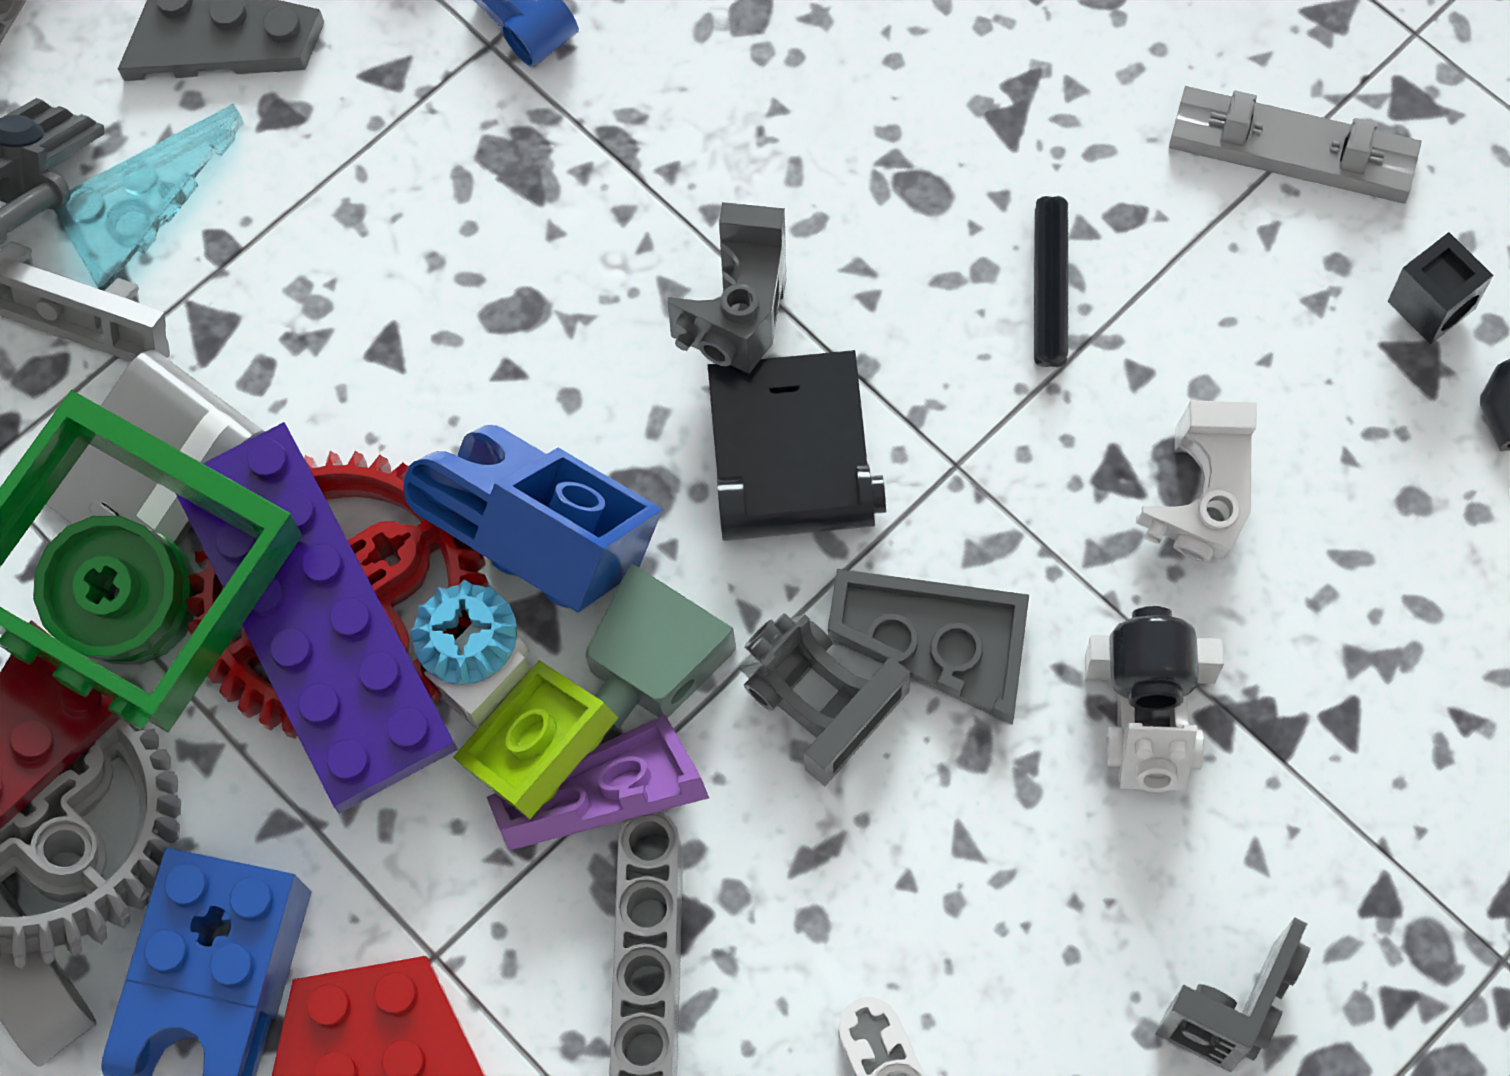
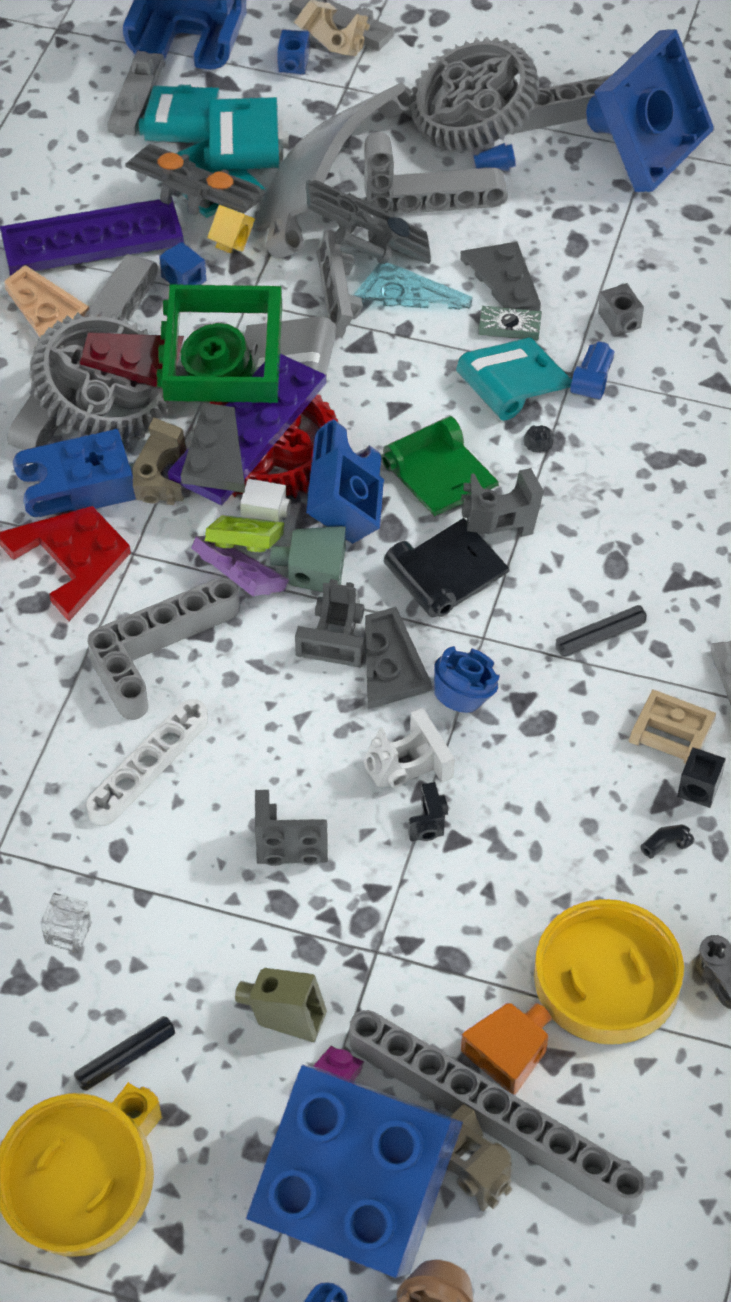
camera: 55 degrees right, 15 degrees down
(257, 789) = (161, 449): none -> dark tan tile
(324, 78) = (510, 322): none -> tile
(353, 699) = (215, 451): none -> dark grey wing
(445, 133) = (510, 374): none -> teal door
(485, 650) = (269, 490): medium azure gear -> none
(569, 348) = (436, 465): none -> green door
(600, 166) = (538, 438): none -> black piece
(1064, 537) = (464, 679): none -> blue cone
(1154, 659) = (420, 726): black head -> none
(1221, 443) = (537, 730): white tile -> none
(1286, 724) = (432, 823): none -> black bracket
(1291, 263) = (675, 718): none -> tan plate

